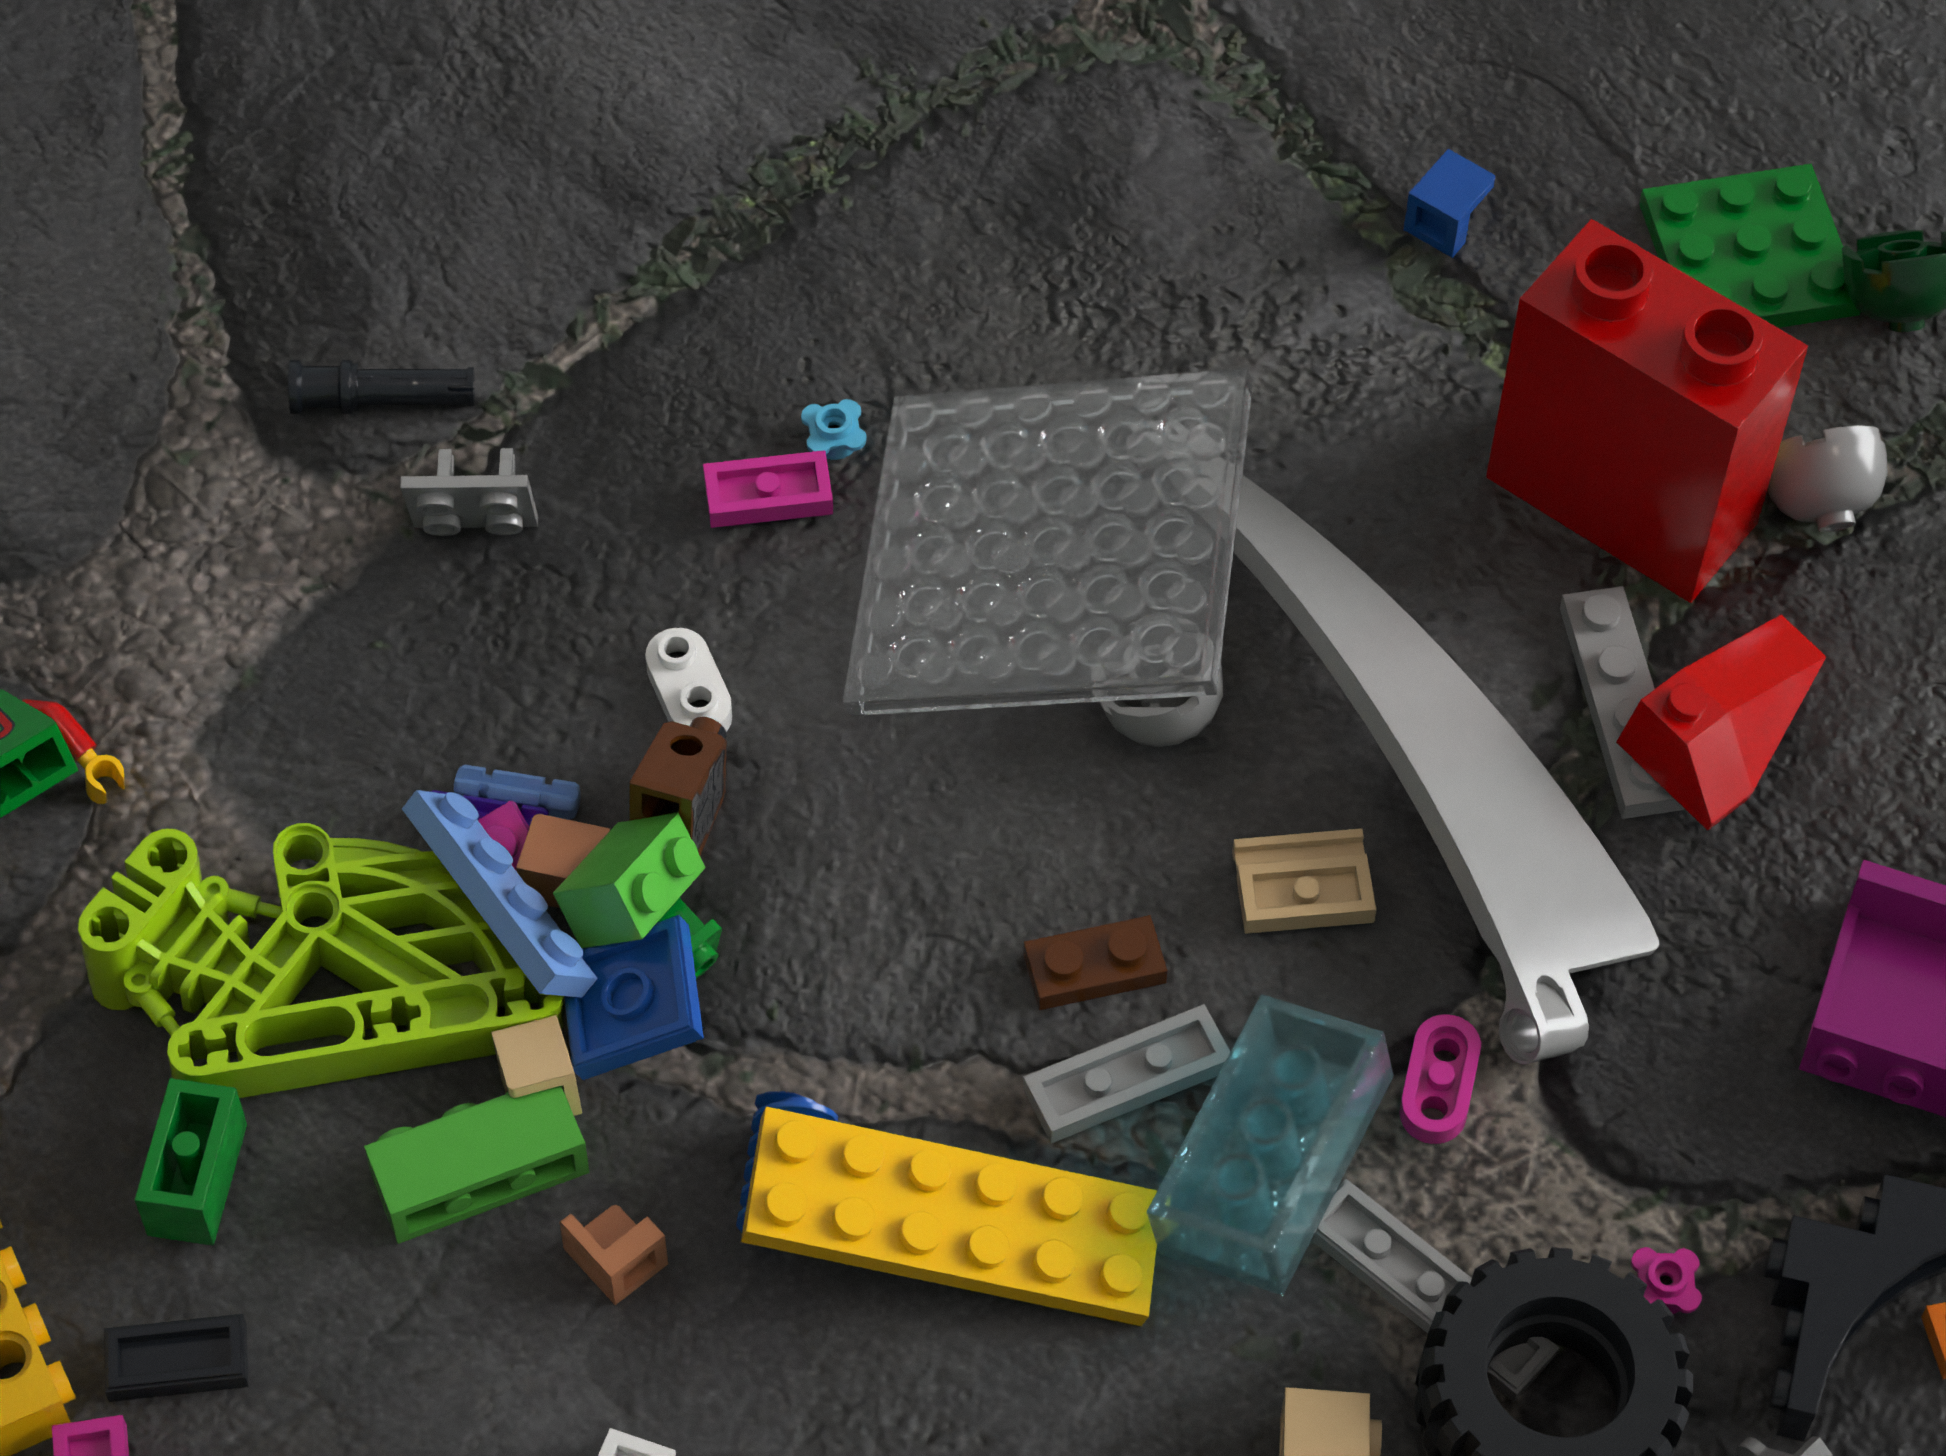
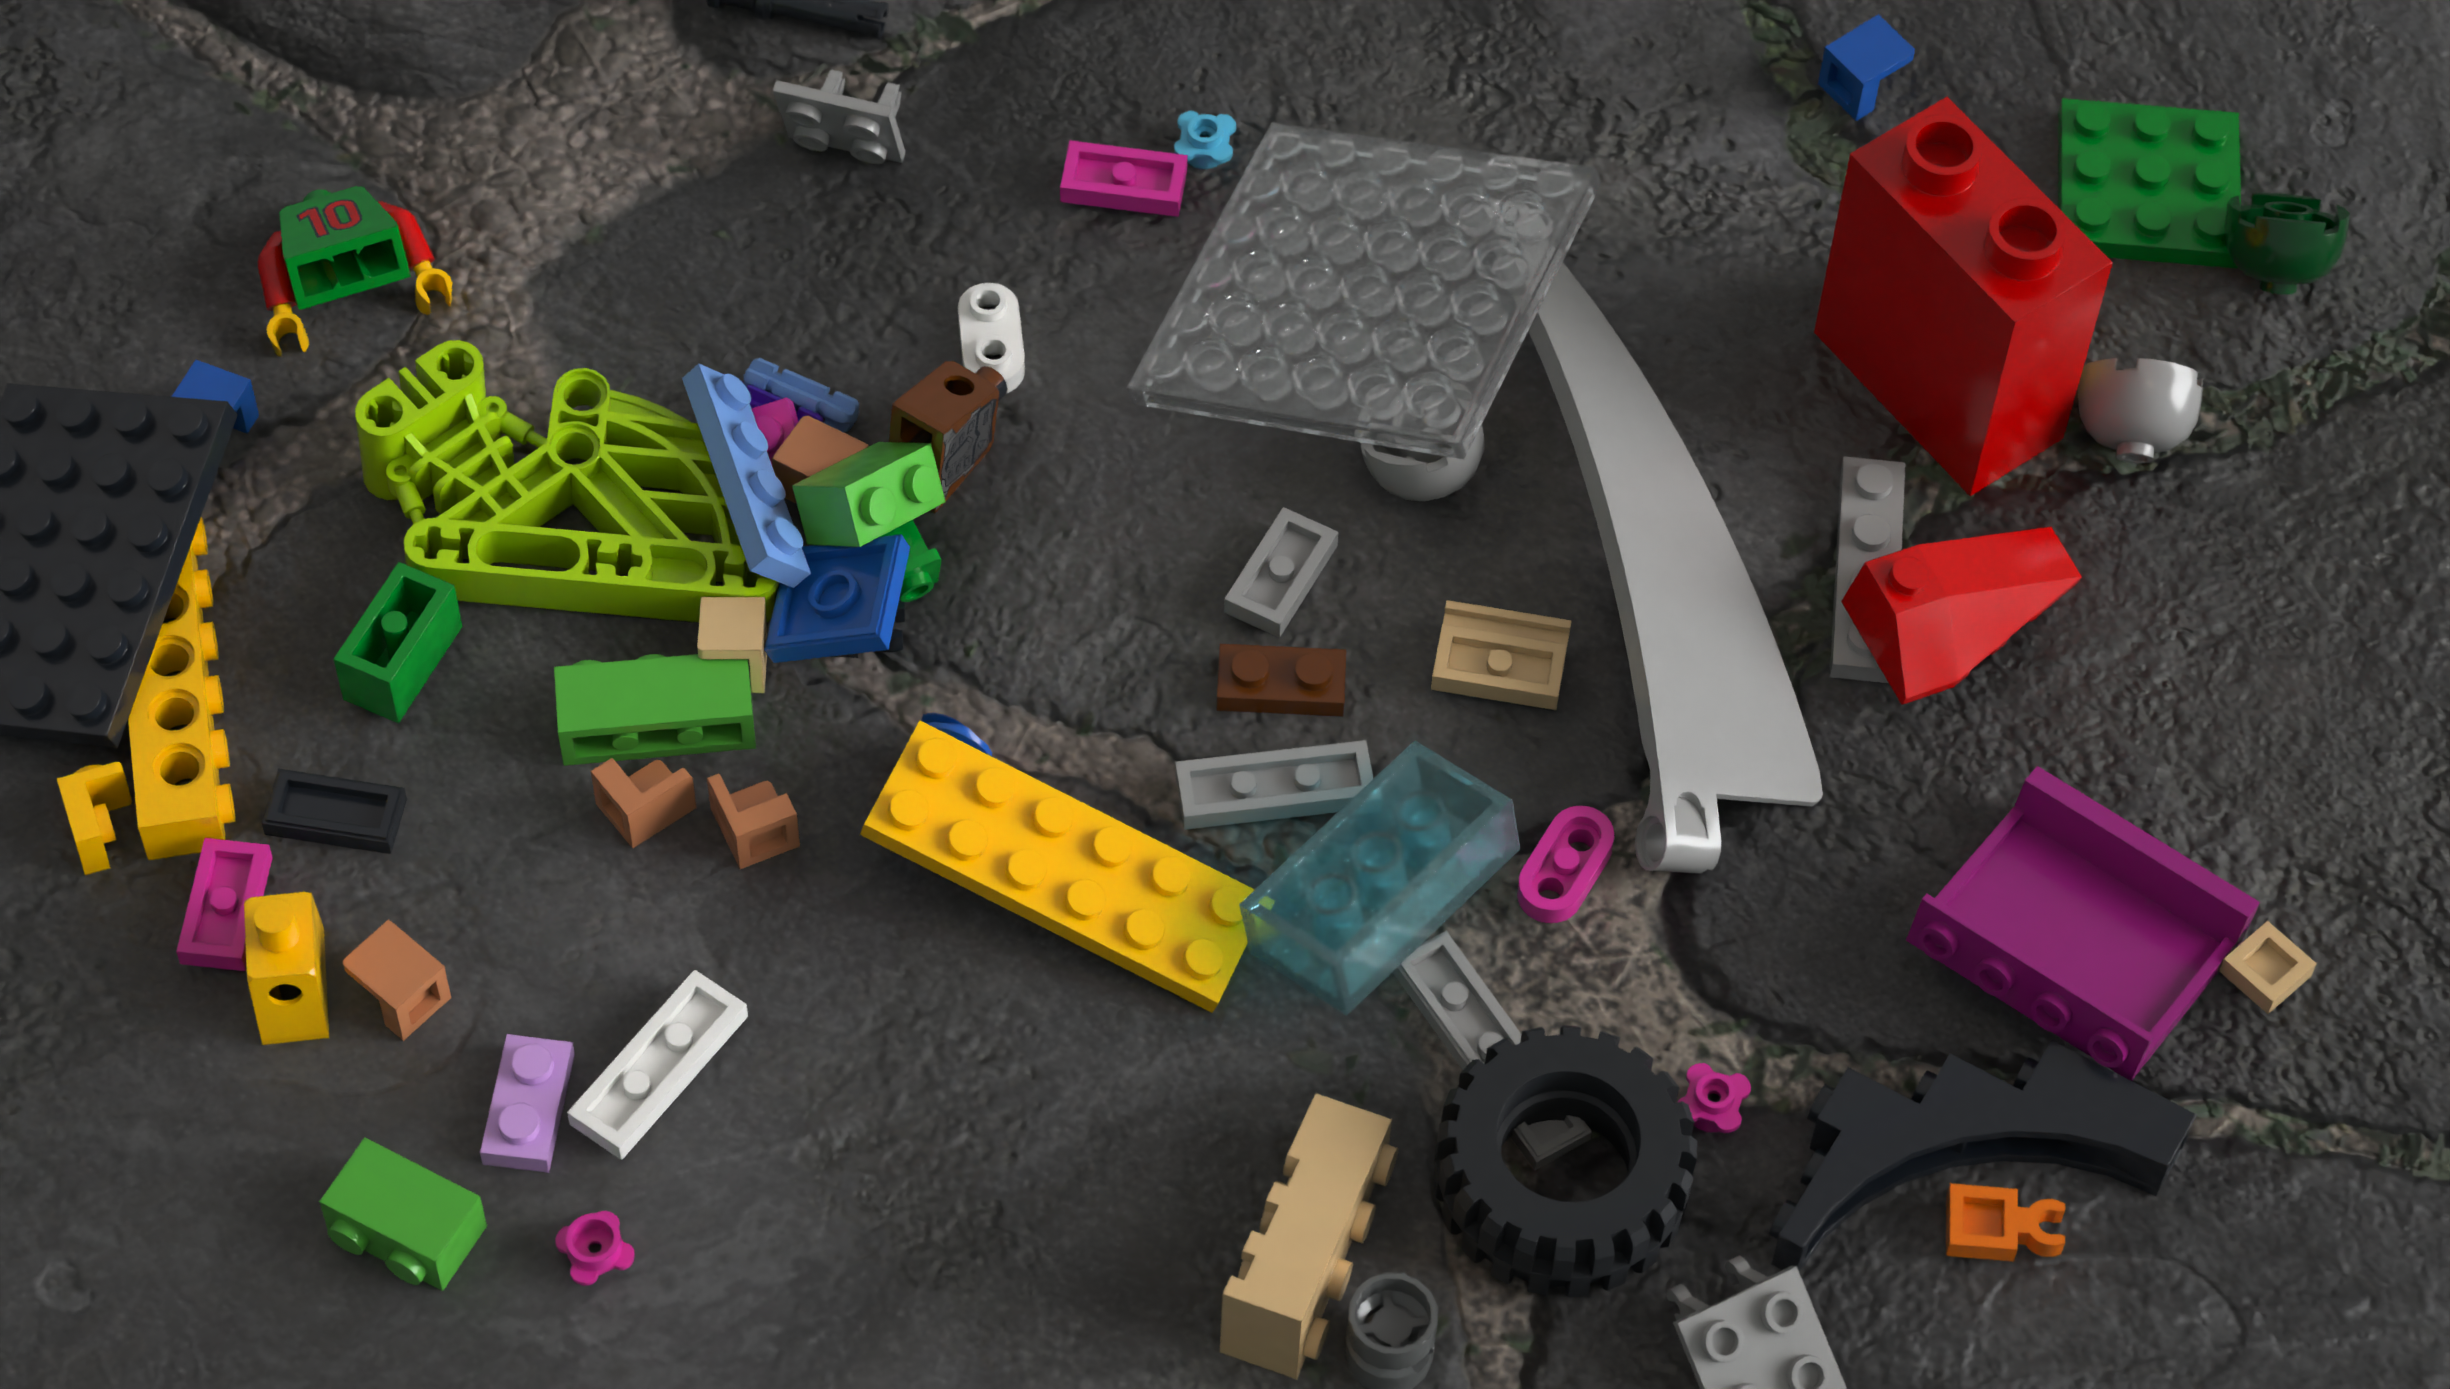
camera: 15 degrees right, 0 degrees up
(494, 1259) = (643, 801): none -> nougat panel
(1059, 852) = (1281, 572): none -> light grey plate

